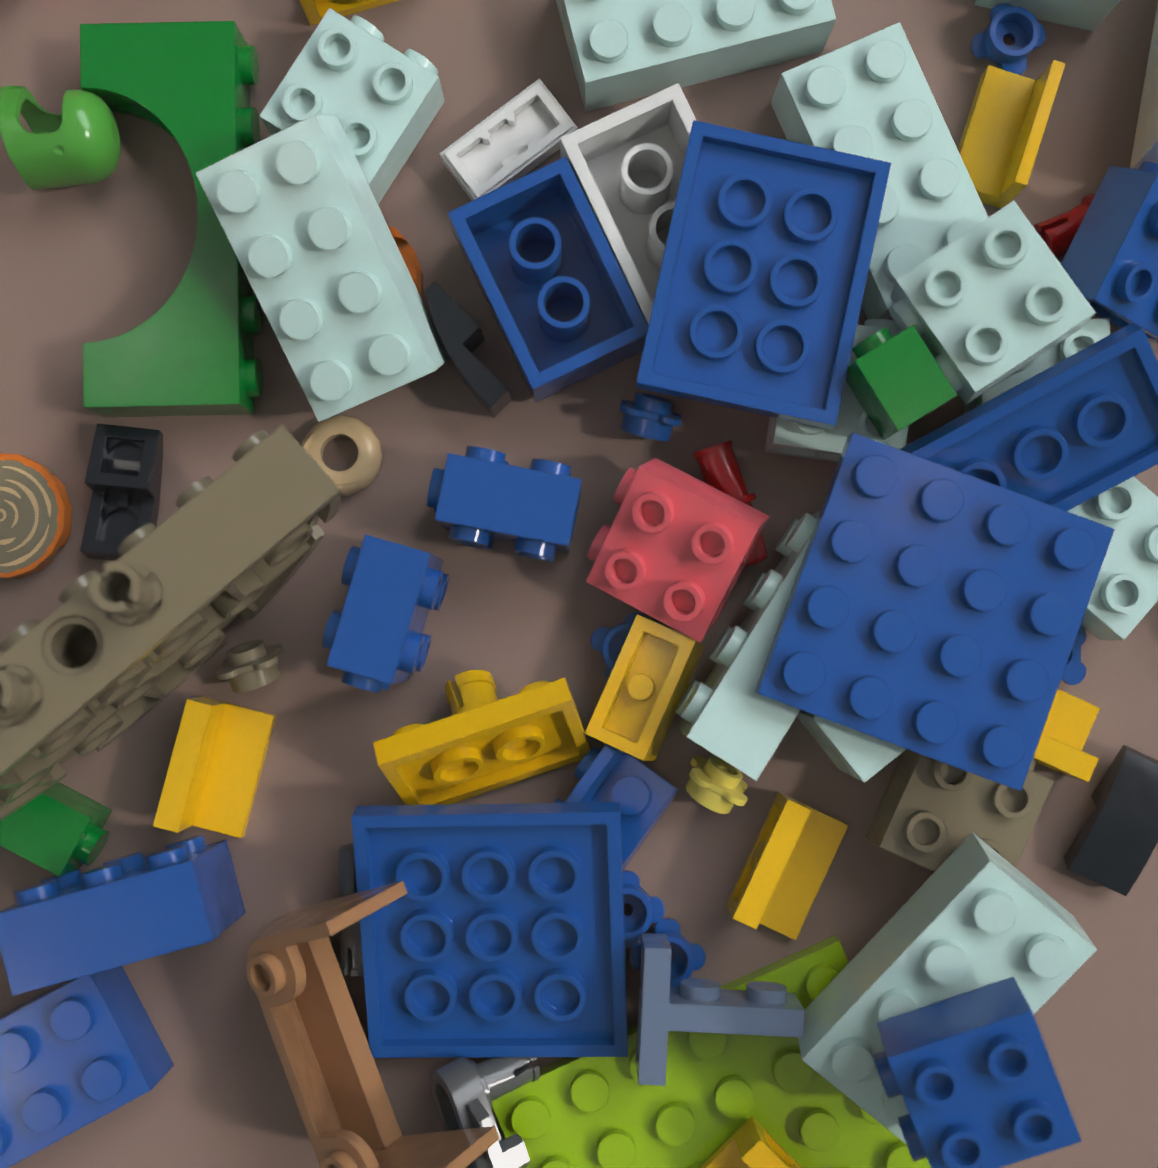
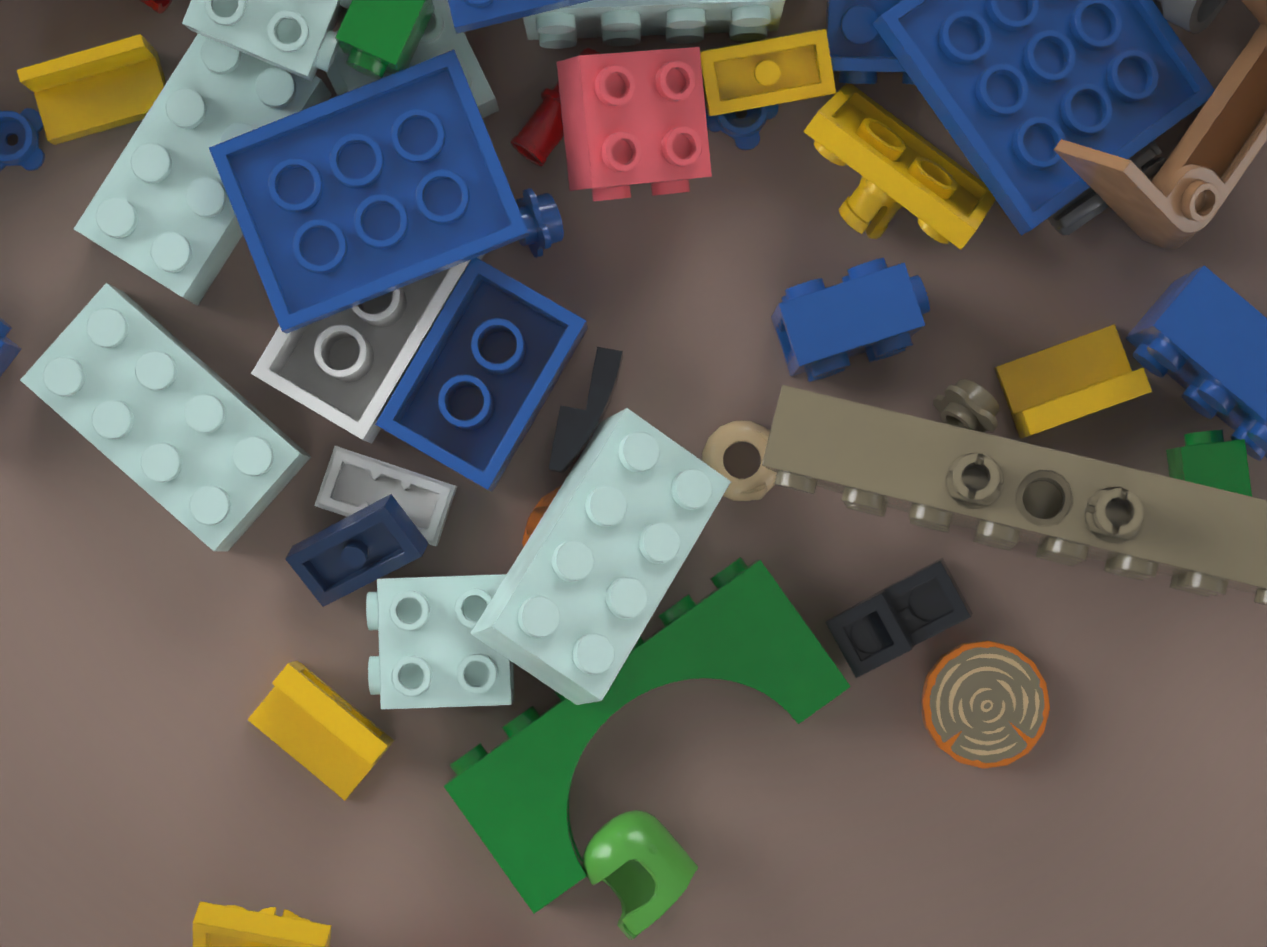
camera: 115 degrees left, 0 degrees up
(477, 84) = (357, 550): none -> dark blue plate
(489, 500) = (701, 300): blue brick -> none

